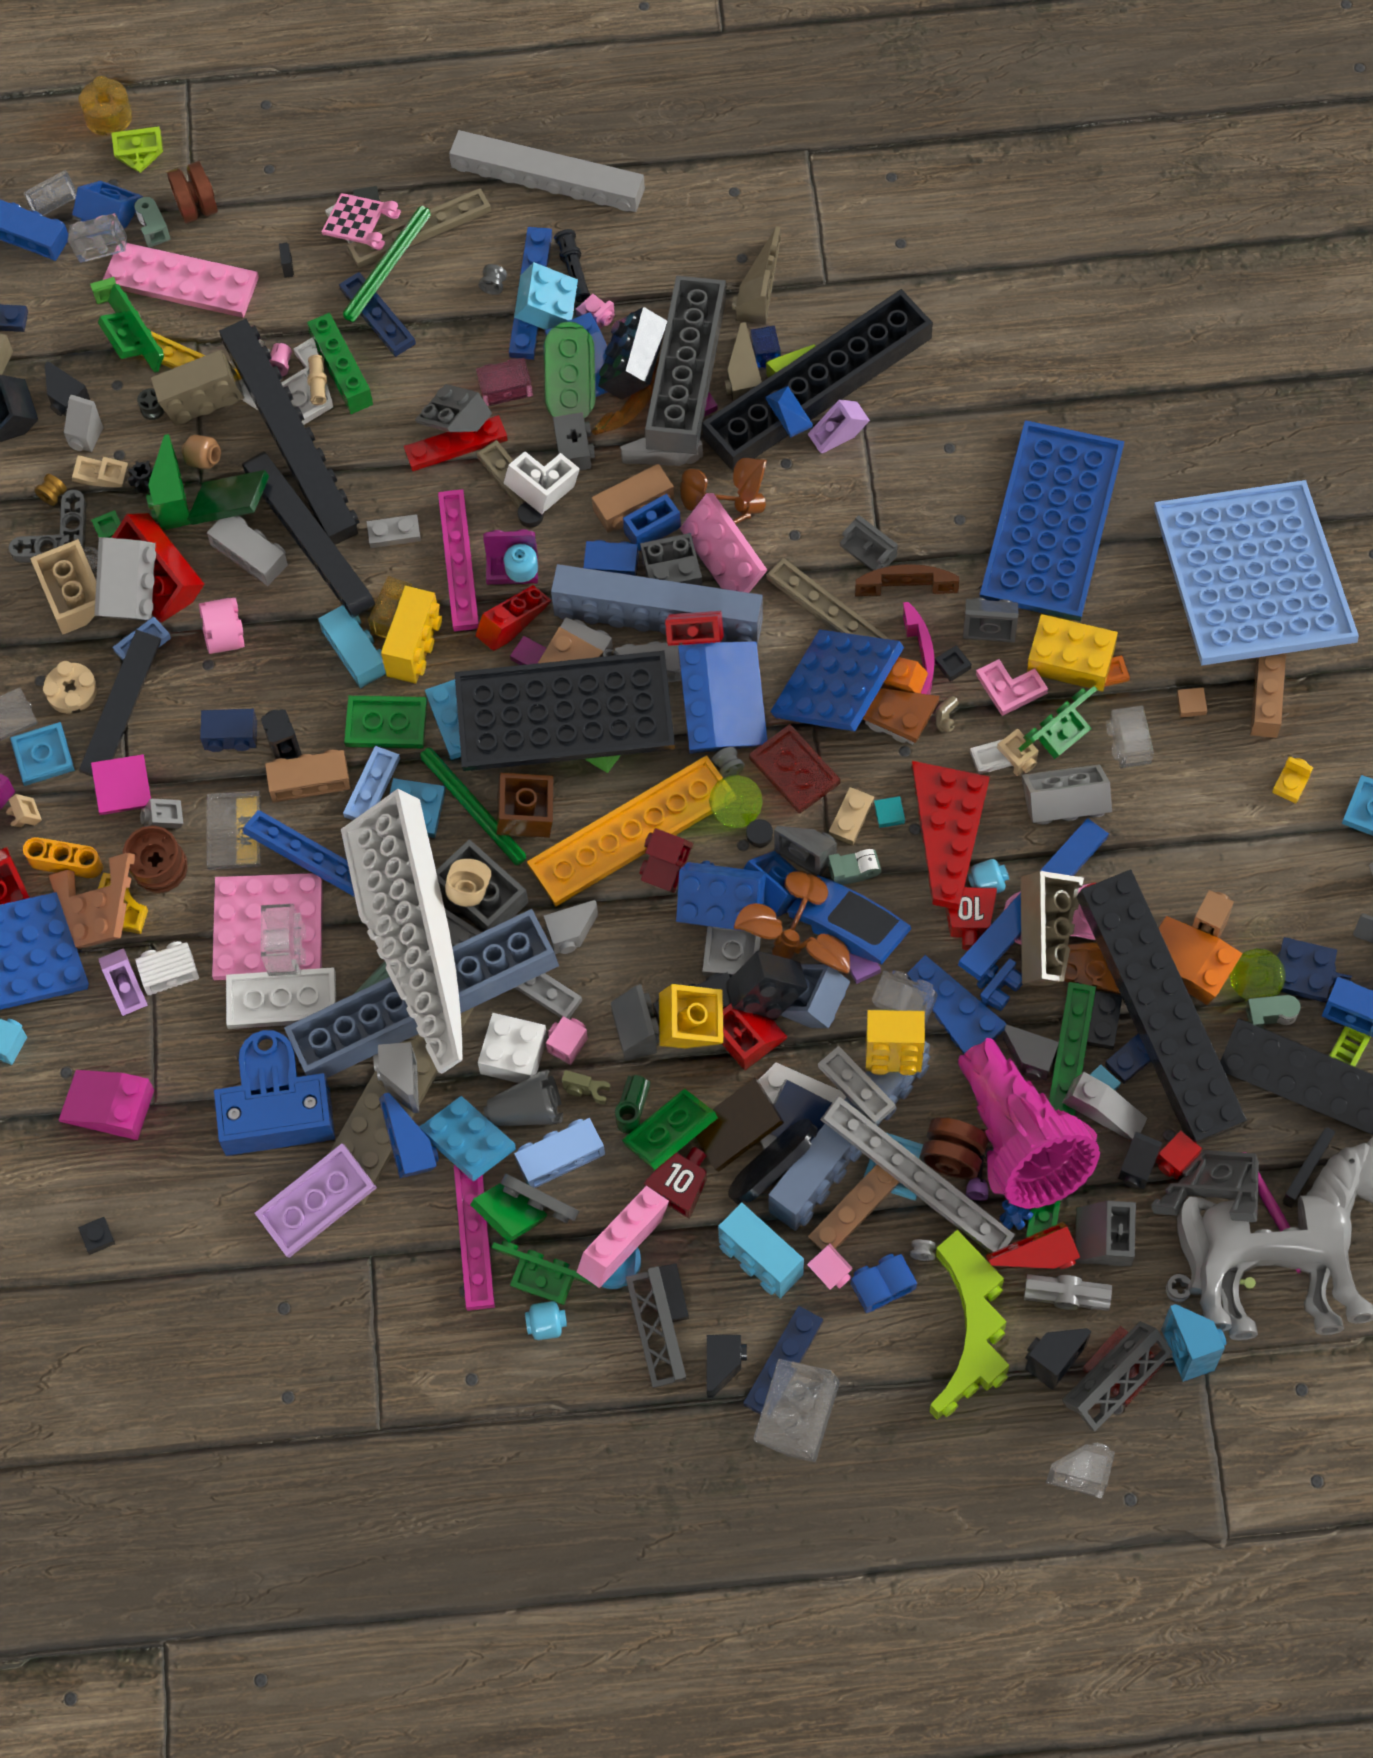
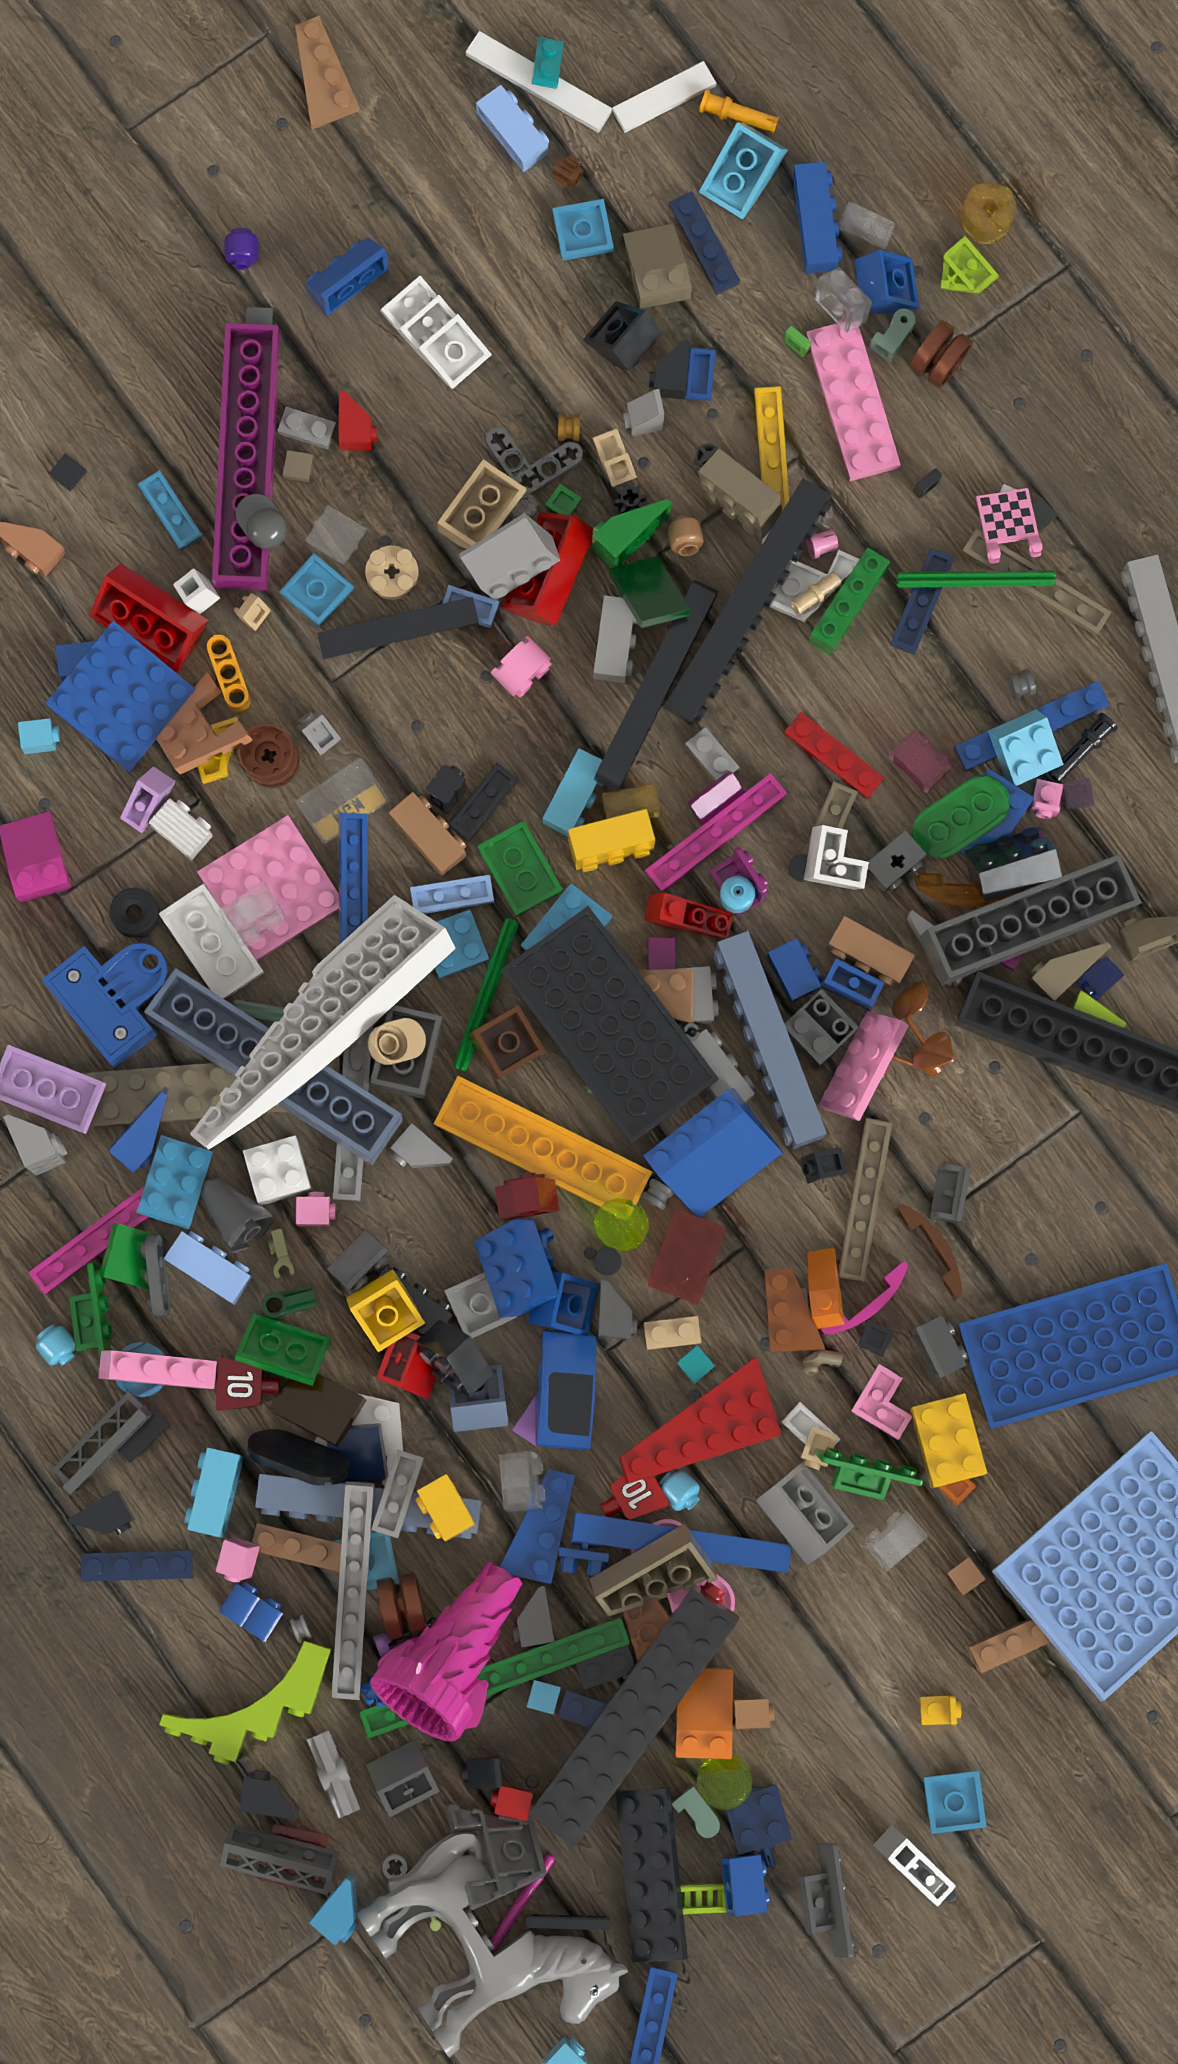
camera: 50 degrees right, 15 degrees up
(81, 372) = (700, 374): none -> blue tile
(121, 784) = (325, 678): dark pink tile -> none
(128, 332) = (762, 391): green bracket -> none
(206, 1032) = (120, 906): none -> black tyre
(228, 729) = (430, 737): dark blue brick -> none
(310, 720) = (482, 802): none -> black tile
(357, 1229) = (35, 1145): none -> light grey slope
(398, 1071) = (189, 1093): light grey slope -> none
(430, 544) = (716, 797): none -> tile
(455, 410) = (854, 738): dark grey slope -> none
(607, 288) = (1078, 794): none -> clear purple tile
(694, 628) = (753, 1093): red brick -> none
(762, 922) = (500, 1323): dark orange plant -> none
(784, 626) = (823, 1165): none -> black bracket
(789, 411) = (1035, 1044): blue slope -> none
(797, 1410) = (96, 1603): clear slope -> none
(837, 680) = (789, 1247): blue plate -> none
(838, 425) = (1058, 1094): lavender slope -> none
(854, 867) = (622, 1365): sand green leg -> none
(1042, 1250) = (352, 1732): red slope -> none
(1083, 1470) = (179, 1876): clear slope -> none
(1104, 1106) = (518, 1714): light grey slope -> none

